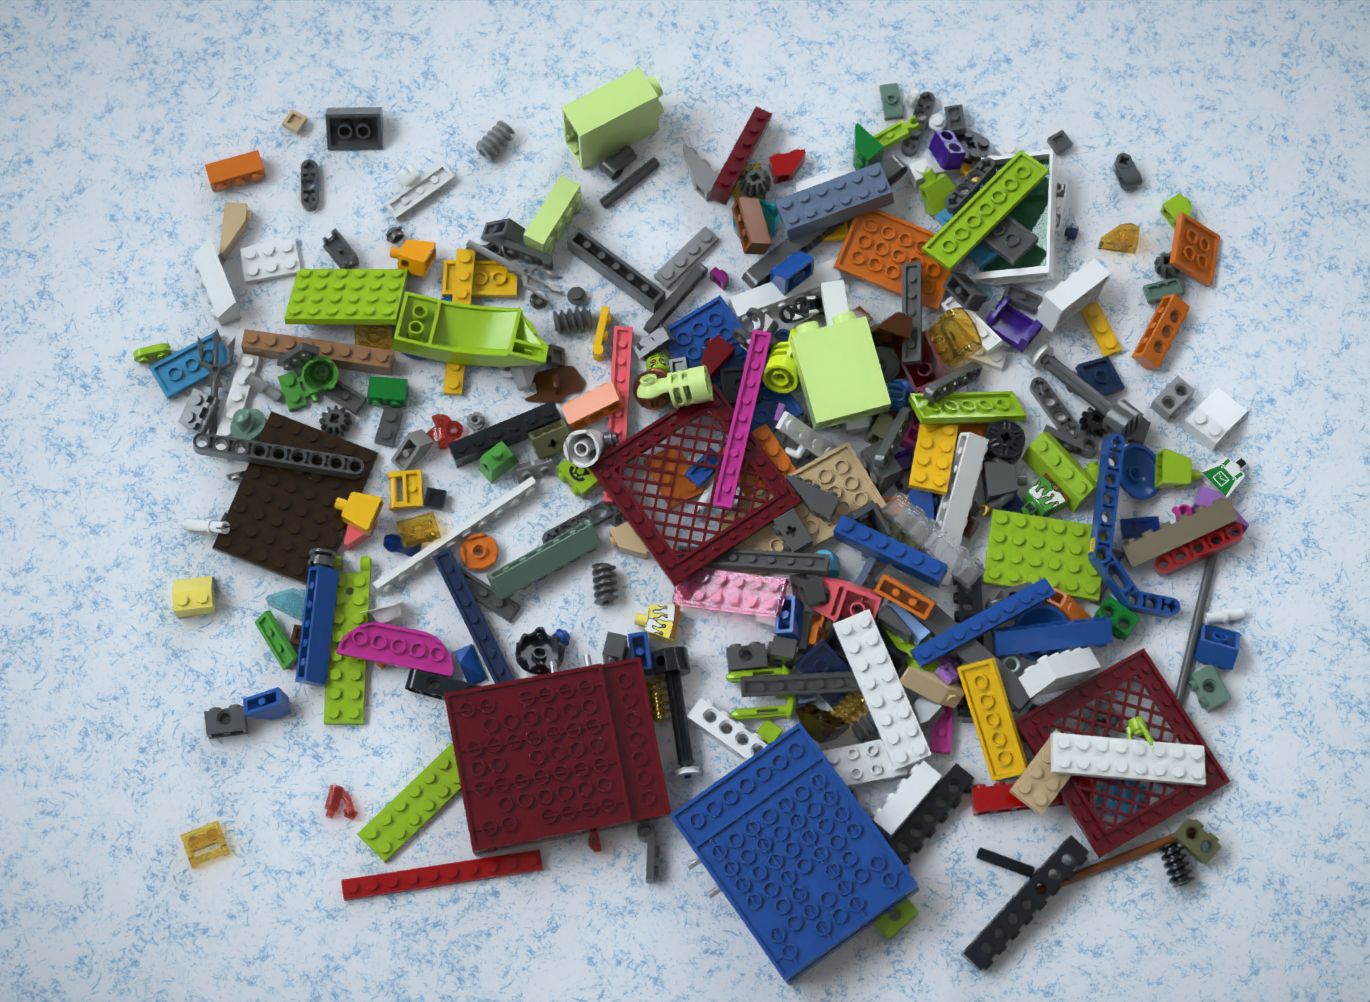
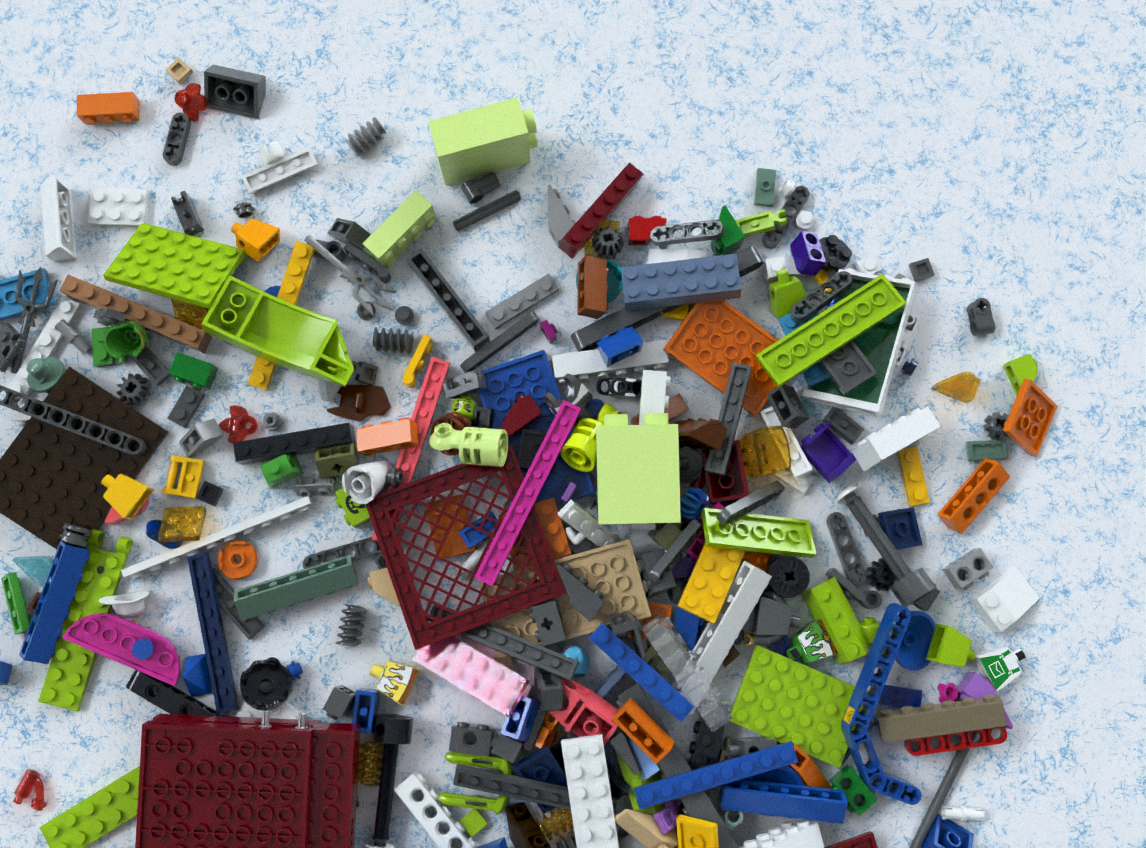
camera: 10 degrees right, 10 degrees up
(234, 226) = (90, 165): tan slope -> none
(318, 146) = (193, 101): none -> clear red plate
(415, 645) = (143, 648): none -> blue tile
(489, 280) = (321, 280): yellow plate -> none
(806, 169) = (663, 239): none -> dark grey beam
(955, 119) = (824, 222): dark grey plate -> none

